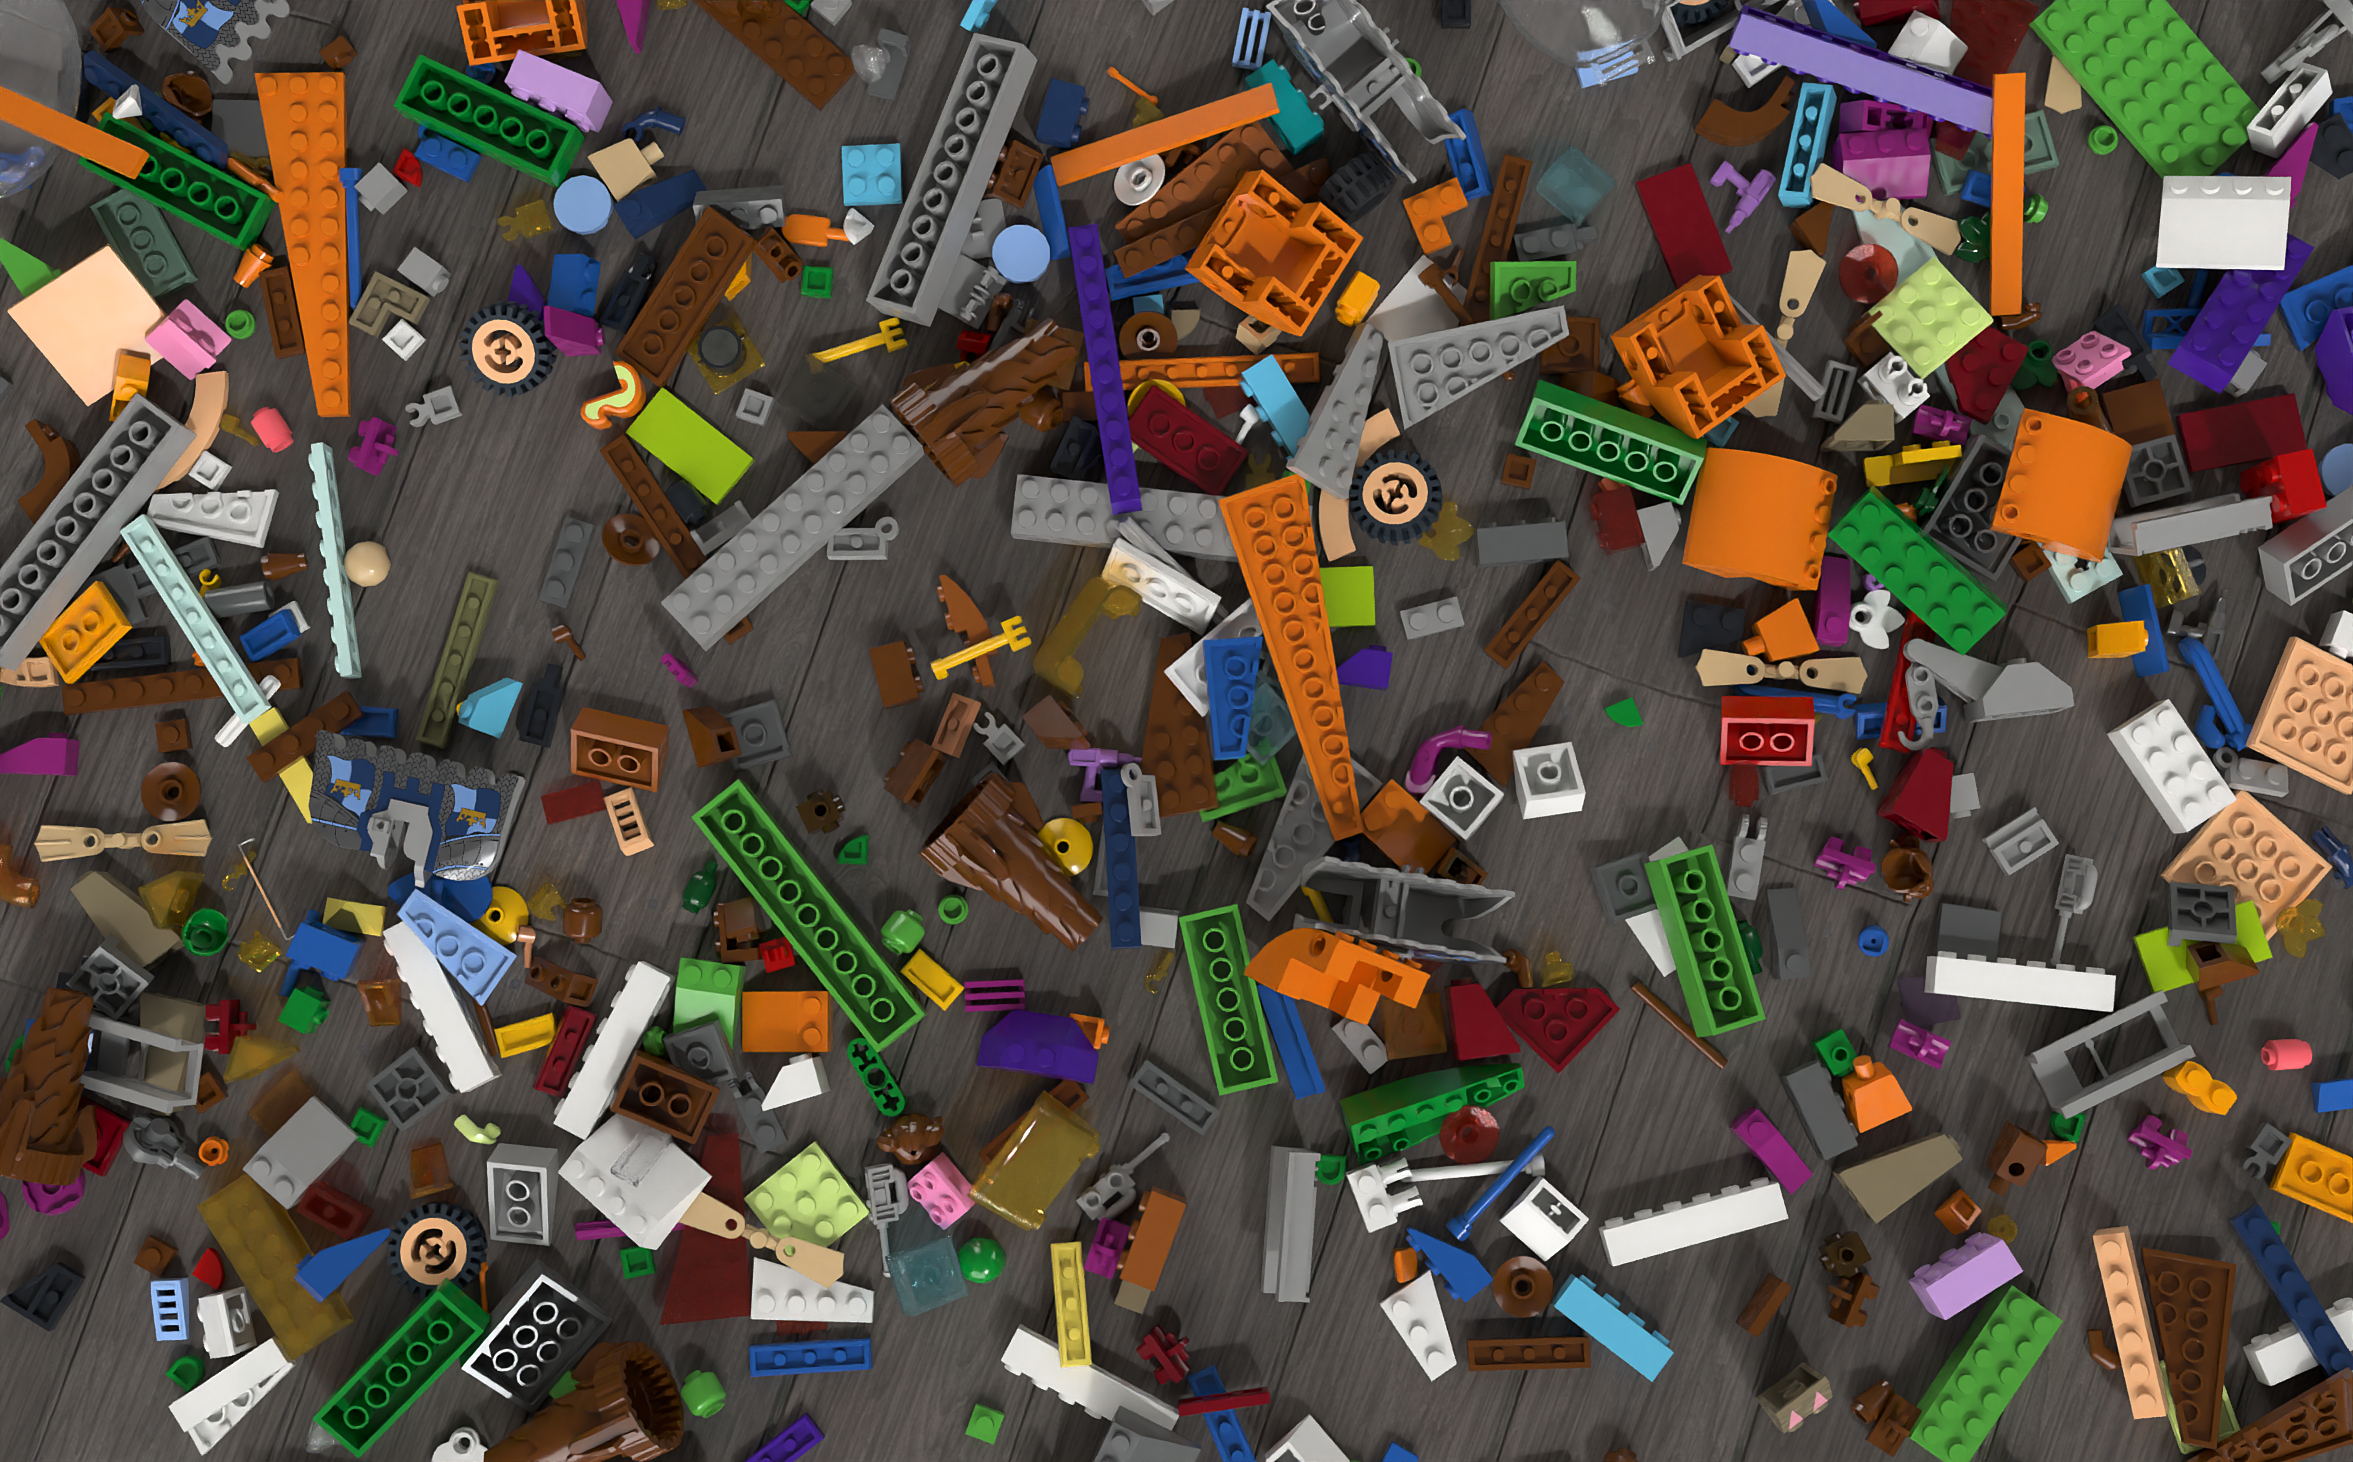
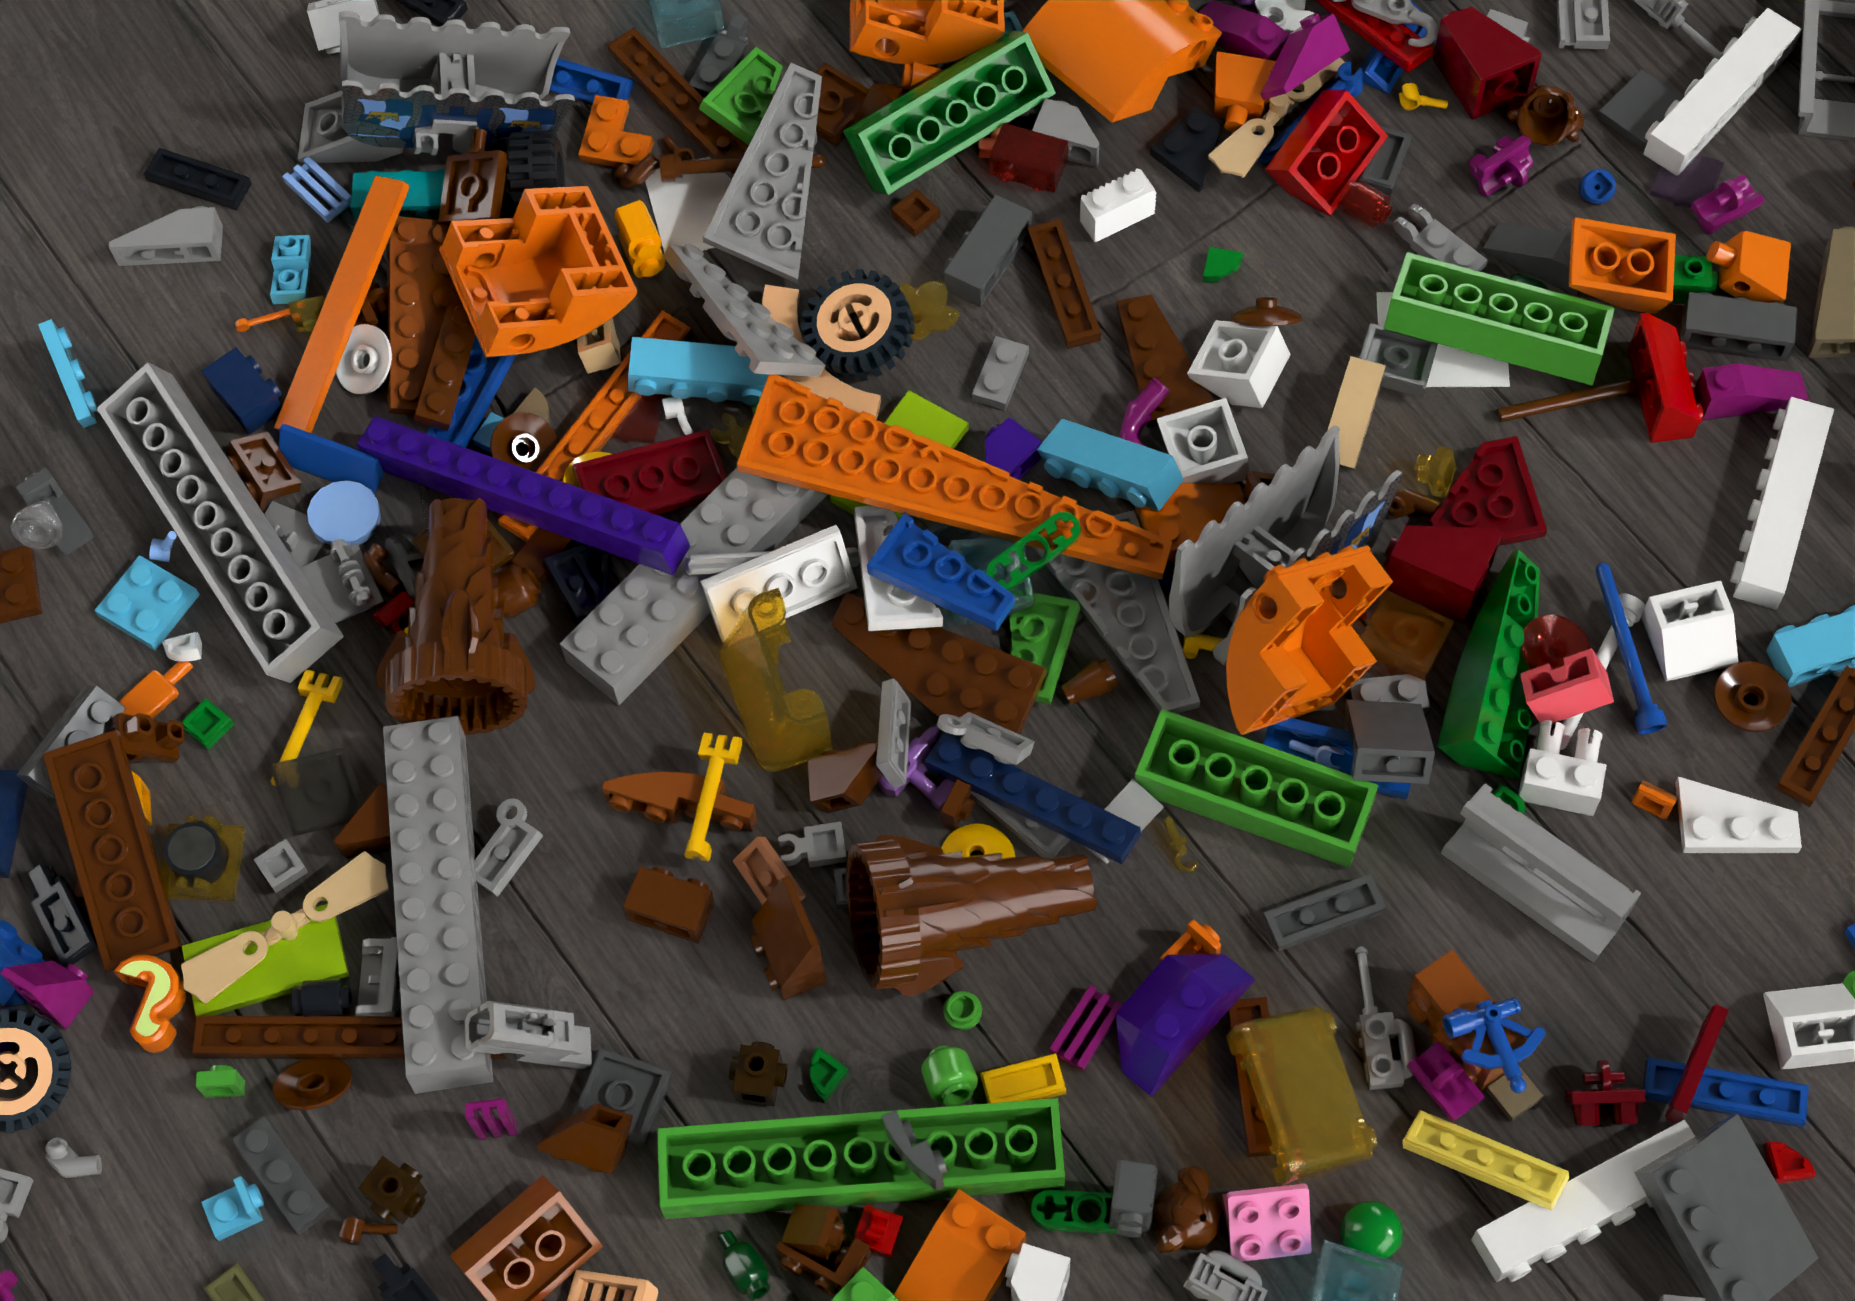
camera: 55 degrees left, 20 degrees down
(486, 428) = (68, 1163): none -> light grey arm
(527, 551) = (234, 1209): none -> medium azure bracket
(594, 633) = (393, 1191): none -> dark brown brick
(595, 481) = (220, 1082): none -> bright green plate
(666, 427) = (226, 963): none -> tan piece
(739, 657) = (530, 1033): none -> light grey plate
(822, 960) = (919, 1158): none -> dark grey slope
(889, 1105) = (1133, 1198): none -> dark grey brick
(914, 153) = (161, 549): none -> light blue hand
(1105, 737) = (893, 733): none -> light grey tile
(1151, 1258) = (1491, 1018): none -> blue piece
(1177, 72) = (291, 268): none -> medium azure slope
(1281, 1028) = (1321, 754): none -> light blue hand
(1311, 156) = (473, 183): none -> reddish brown plate
(1312, 745) = (1051, 527): none -> green beam
(1317, 1067) = (1389, 741): none -> dark grey panel
(1398, 748) = (1110, 465): none -> medium azure brick
(1413, 255) = (639, 174): none -> reddish brown arm
(1444, 1170) = (1568, 689): none -> coral brick
(1457, 1265) = (1691, 746): blue slope -> none
(1559, 885) = (1355, 407): none -> tan slope
(1595, 776) = (1266, 313): none -> reddish brown dish
(1619, 611) = (1117, 205): none -> white brick
(1735, 1086) = (1663, 380): none -> red slope
(1805, 1002) = (1622, 264): none -> orange slope
(1835, 665) = (1306, 53): none -> magenta slope

